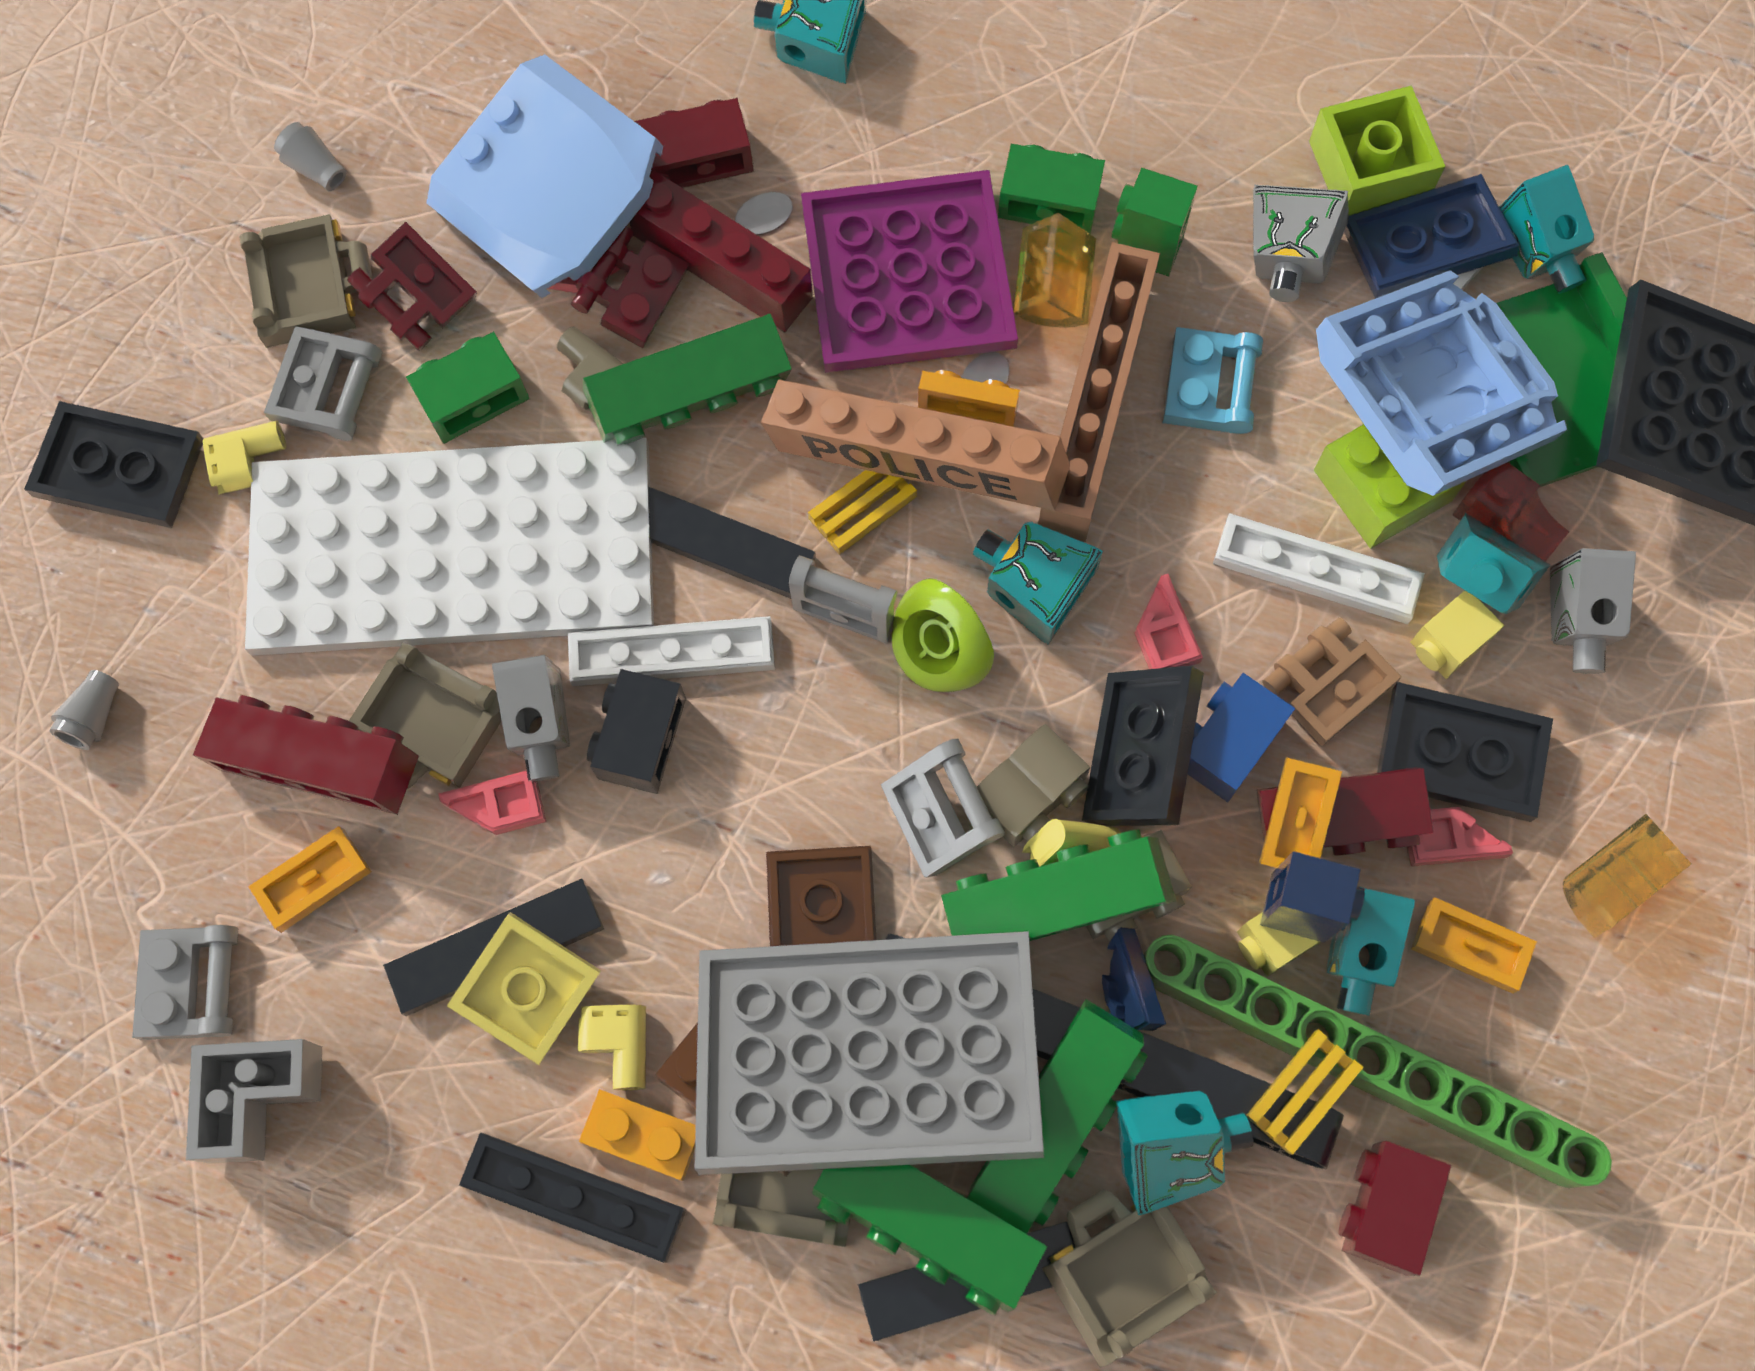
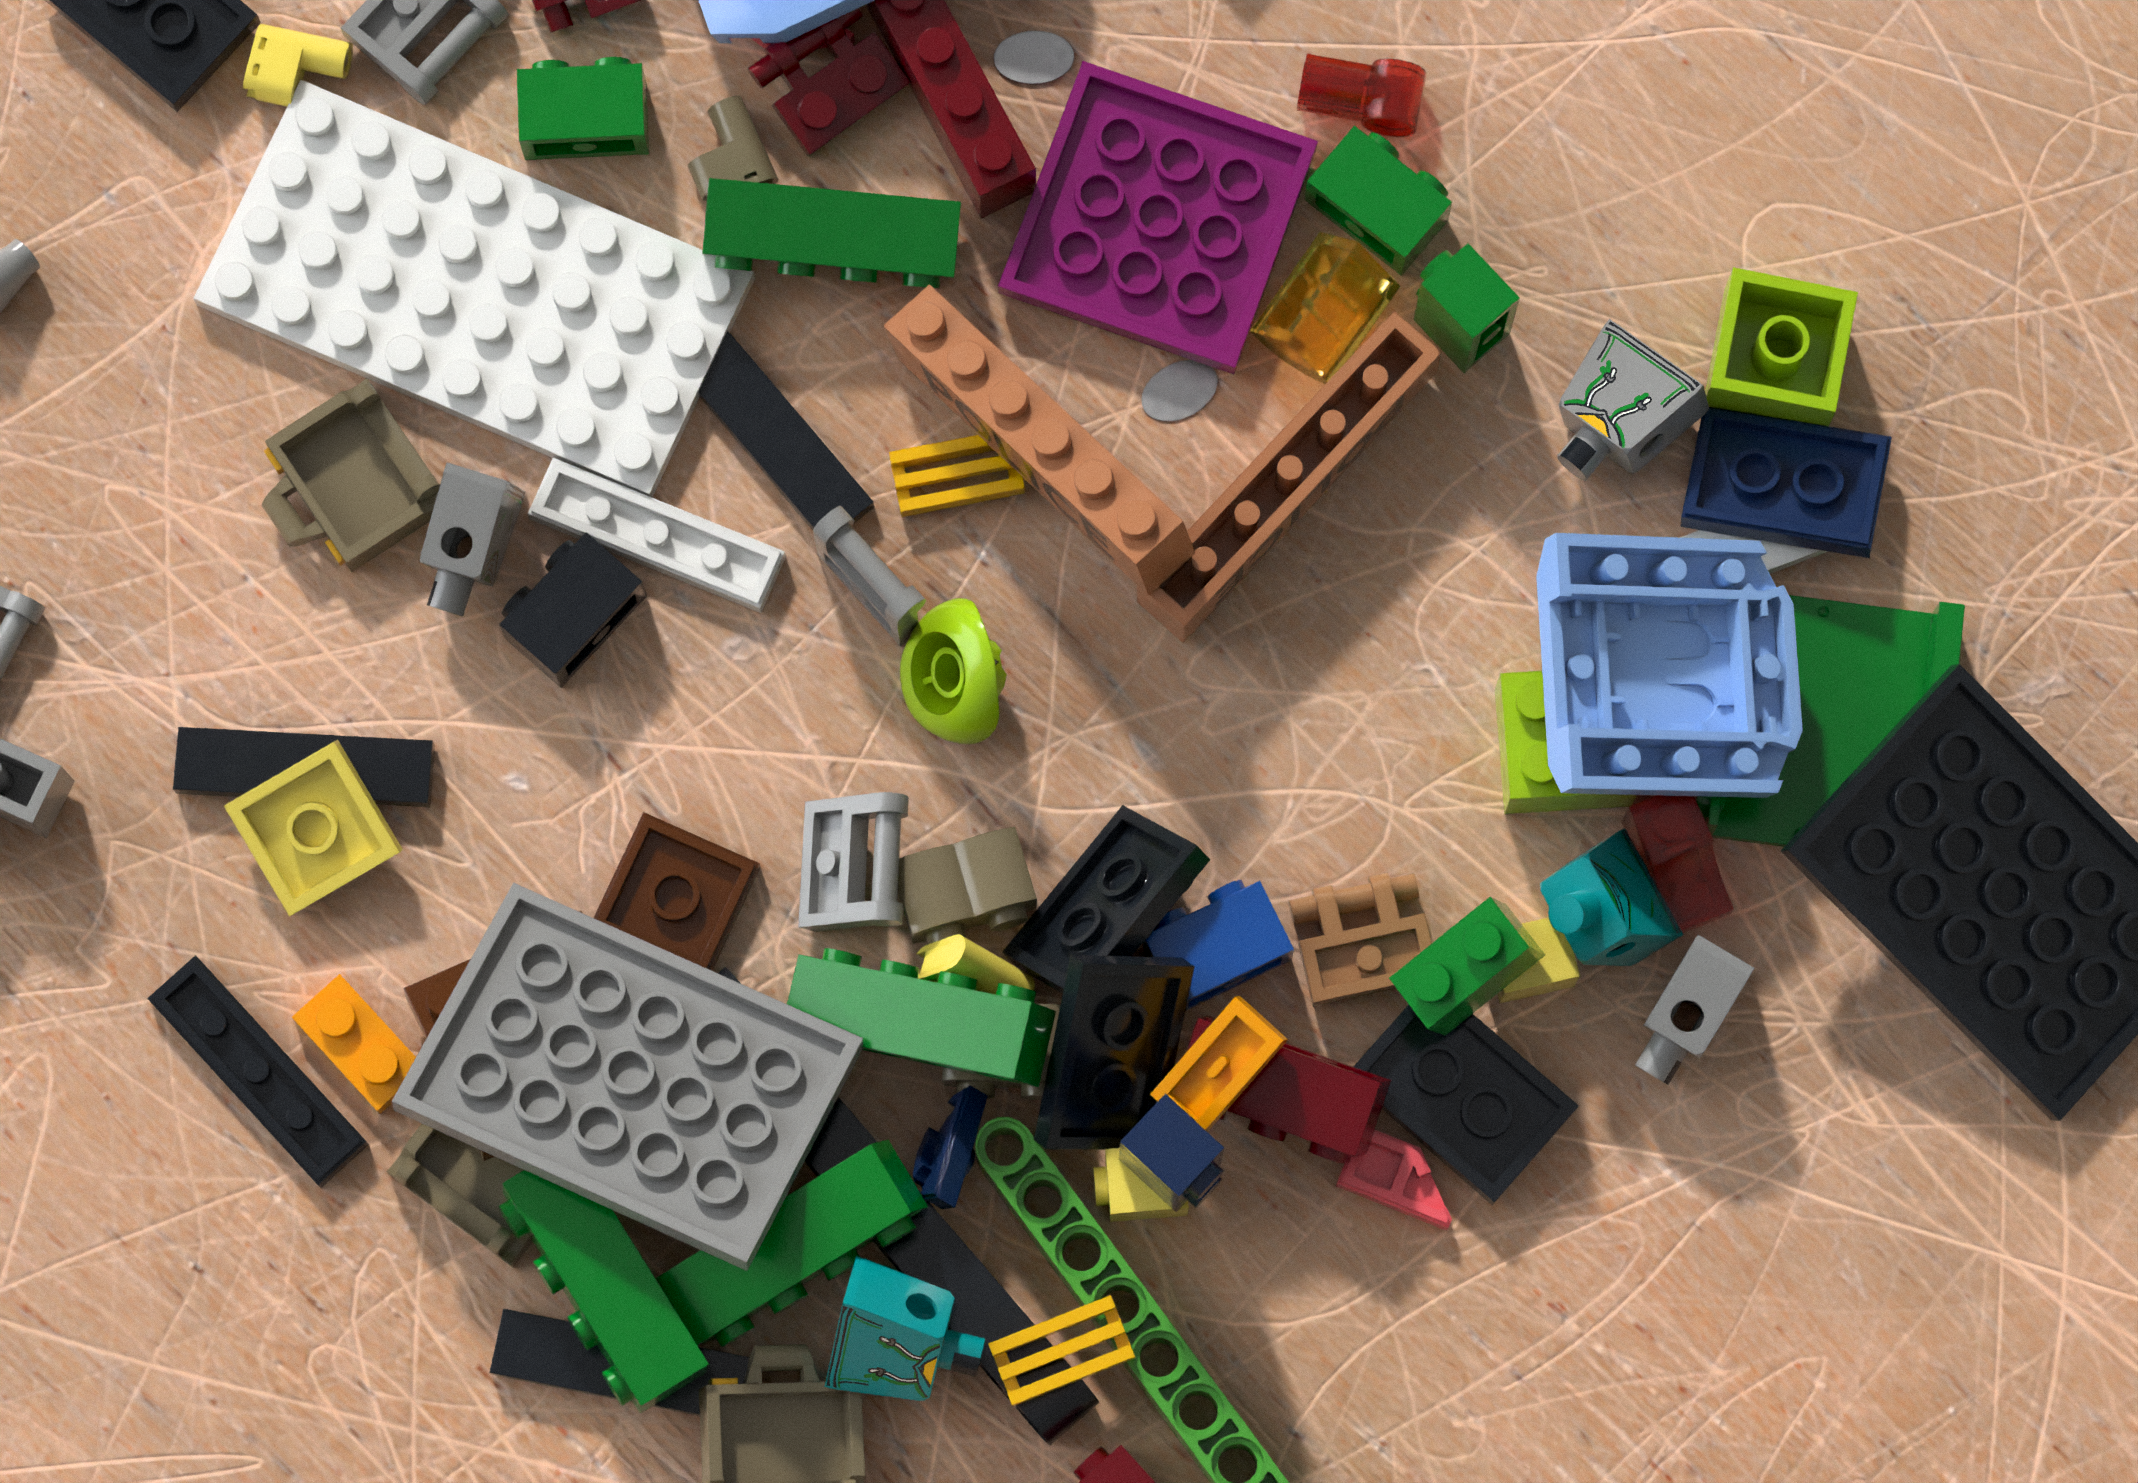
camera: 25 degrees right, 5 degrees up
(307, 753) = (205, 456): dark red brick -> none
(309, 879) = (145, 594): light orange plate -> none
(498, 803) = (385, 612): coral tile -> none
(620, 1032) = (393, 928): light yellow piece -> none
(953, 395) = (1122, 393): light orange plate -> none
(1013, 120) = (1379, 94): none -> clear red piece
(1038, 575) = (1104, 655): teal torso -> none
(1165, 631) = (1214, 792): coral tile -> none
(1196, 375) = (1421, 512): medium azure plate -> none
(1213, 847) = (1111, 1047): none -> black plate
(1319, 568) = (1426, 804): white tile -> none
(1383, 931) = (1243, 1218): teal torso -> none
(1431, 654) = (1467, 966): none -> green brick
(1474, 945) = (1345, 1300): light orange plate -> none
(1549, 227) = (1924, 519): teal torso -> none
(1622, 875) = (1548, 1310): clear yellow brick -> none

